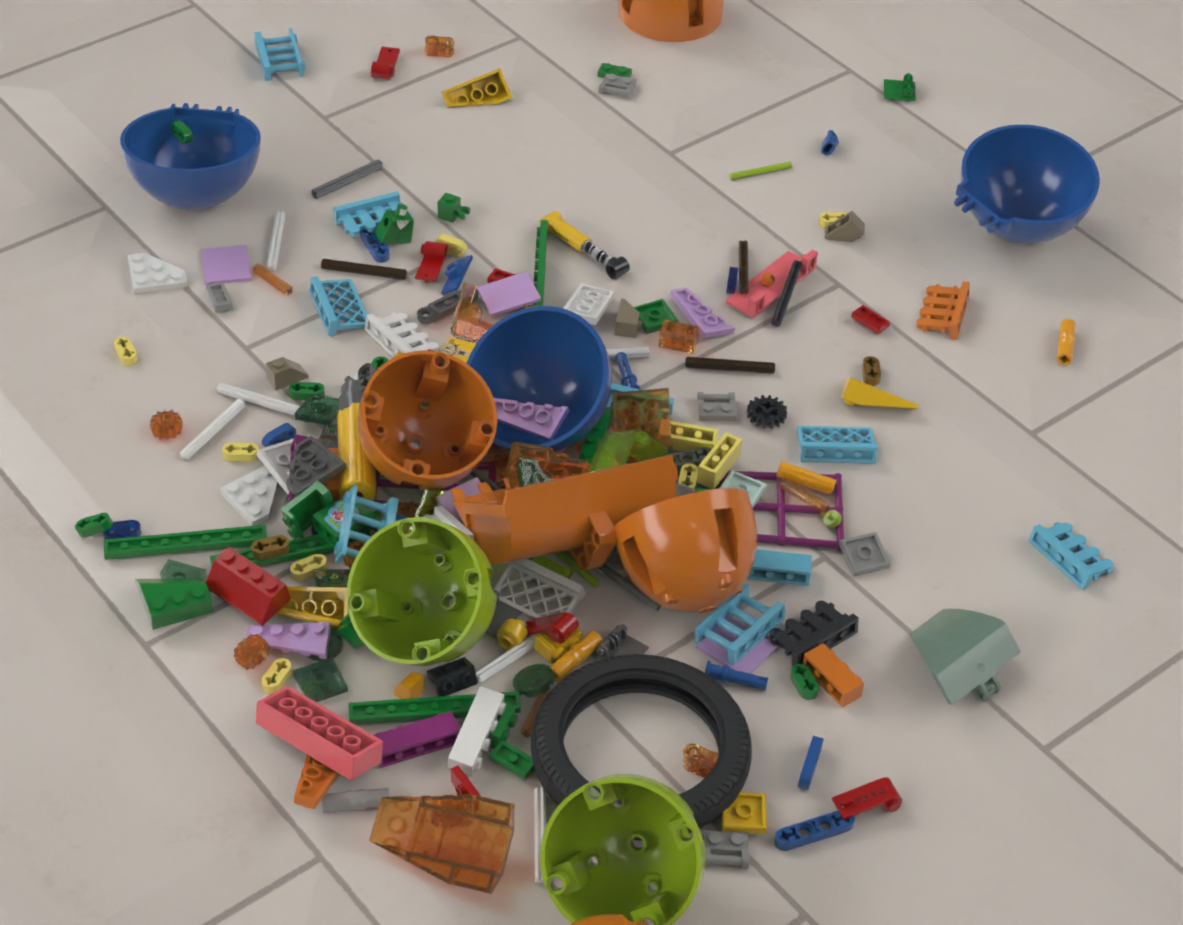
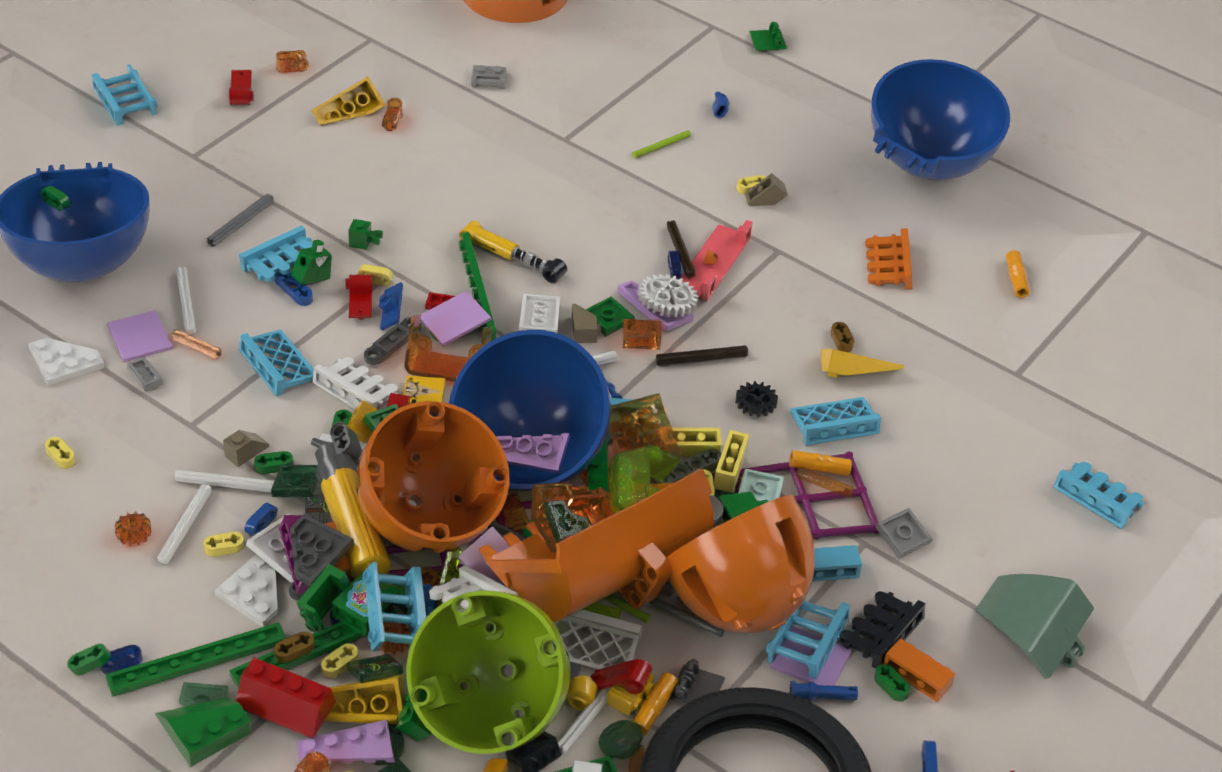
camera: 15 degrees left, 0 degrees up
(366, 269) = (290, 316): dark brown axle -> none
(516, 106) = (393, 114): none -> clear orange piece
(613, 69) = (473, 59): green plate -> none
(716, 411) = (703, 407): light grey plate -> none
(725, 306) = (667, 295): none -> white gear
(786, 293) = (733, 269): black axle -> none
(831, 518) = (858, 501): lime piece -> none
(870, 319) = (823, 283): red plate -> none

